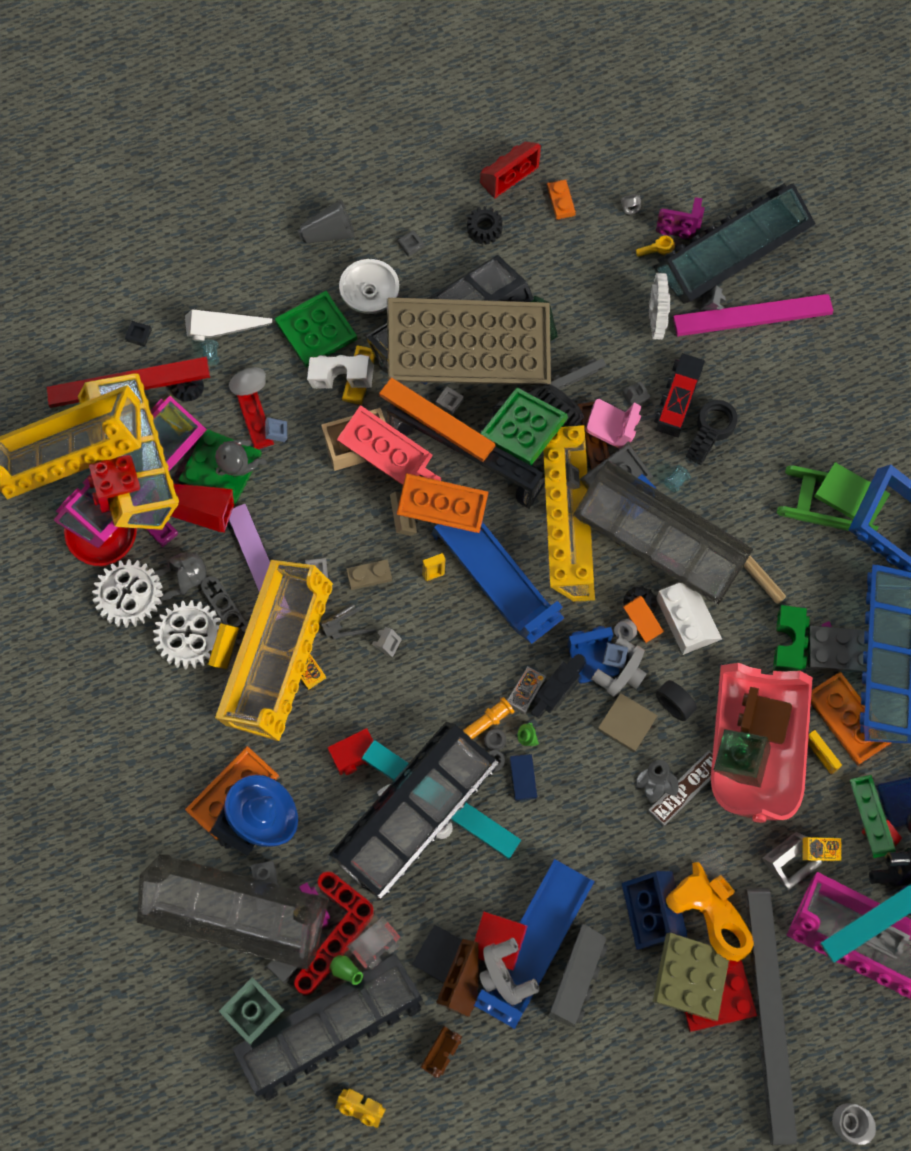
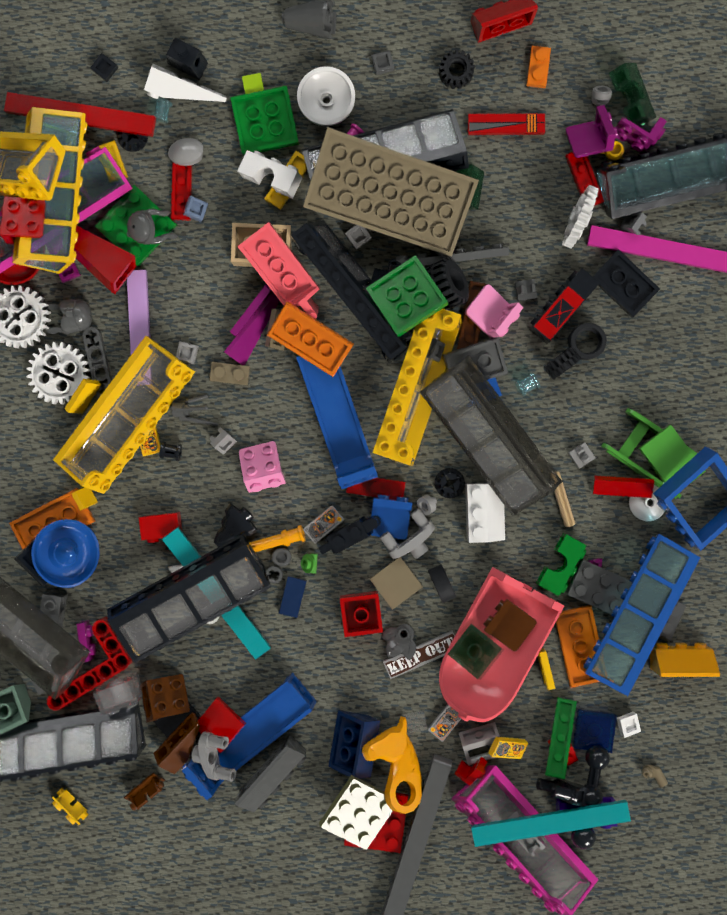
camera: 25 degrees right, 20 degrees up
(219, 297) = (183, 57): none -> black torso
(260, 752) = (84, 498): none -> yellow tile
(290, 300) = (252, 83): none -> lime tile
(332, 675) = (170, 451): none -> black bush
(345, 969) = (89, 705): bright green cone -> none
(374, 518) = (251, 325): none -> magenta wedge
(423, 934) = (164, 697): none -> reddish brown bracket
(431, 720) = (234, 524): none -> black rock
(433, 567) = (283, 391): yellow tile -> none
(437, 419) = (330, 262): orange tile -> none
(439, 654) = (261, 467): none -> bright pink bracket
(552, 256) = (506, 124): none -> red tile
(560, 633) = (379, 486): none -> red plate
(604, 763) = (361, 613): none -> red brick
(615, 655) = (408, 525): sand blue tile -> none
(641, 238) = (593, 136): none -> magenta bracket
(642, 273) = (583, 175): none -> red tile
(643, 619) = (444, 501): orange tile -> none
(654, 184) = (629, 81): none -> clear green arch
(722, 887) = (415, 746): light orange tile -> none
(730, 355) = (625, 283): none -> black plate
(743, 849) = (444, 723): none -> tile
(761, 528) = (581, 455): none -> light grey tile
(800, 887) = (470, 774): none -> red bracket
(816, 541) = (623, 486): none -> red tile
(843, 557) = (642, 511): none -> white dish

